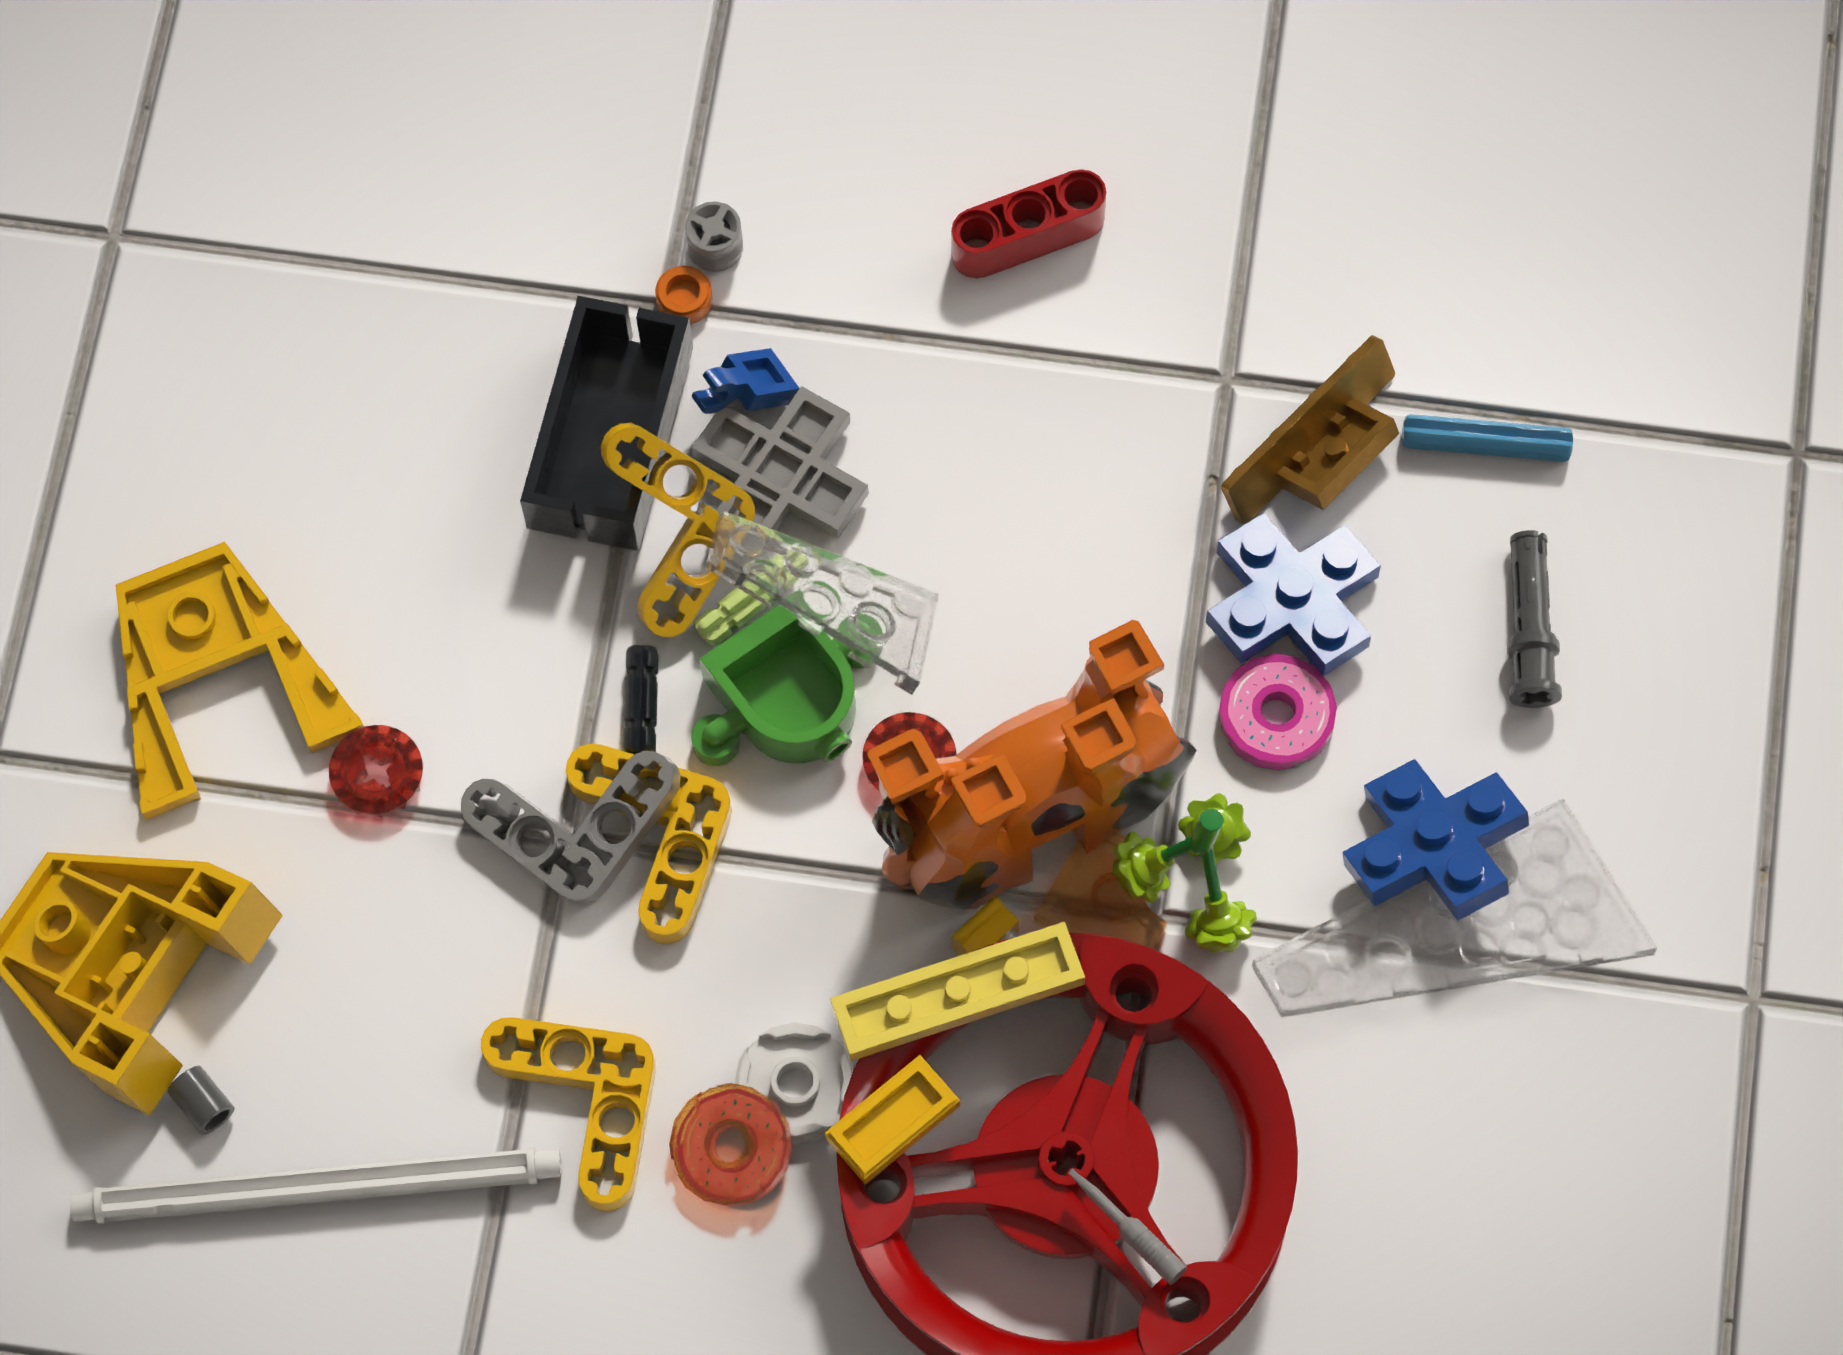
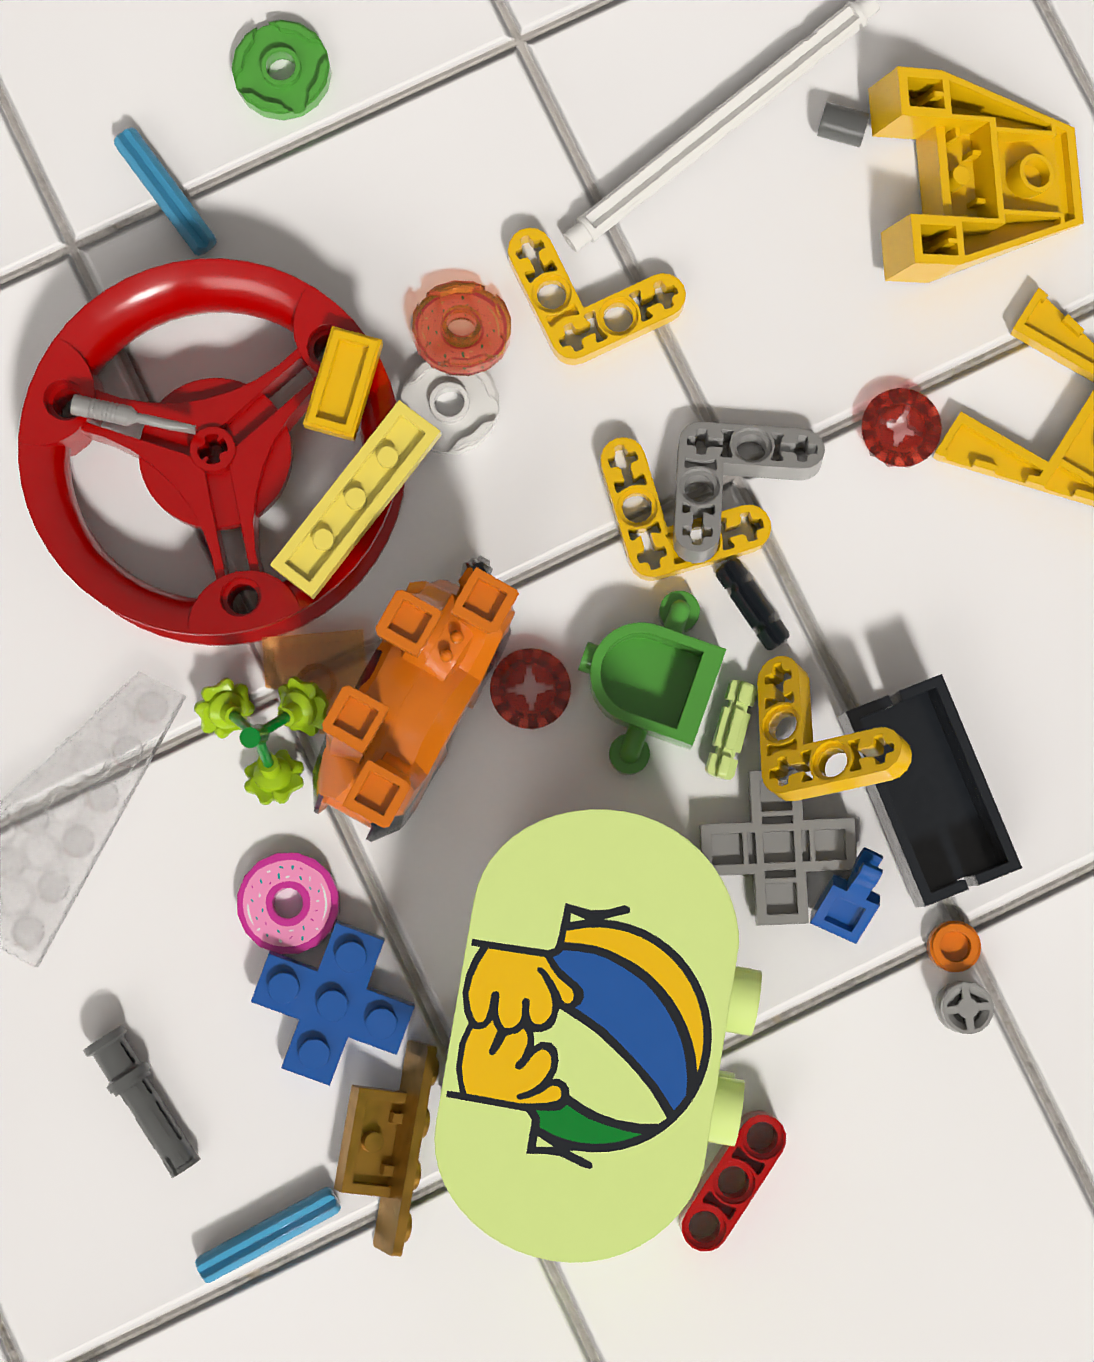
camera: 145 degrees right, 15 degrees up
(857, 605) = (667, 760): clear wing -> none
(986, 927) = (376, 599): yellow piece -> none
(1069, 386) = (592, 1036): none -> yellowish green brick
(1436, 839) = (106, 871): blue plate -> none

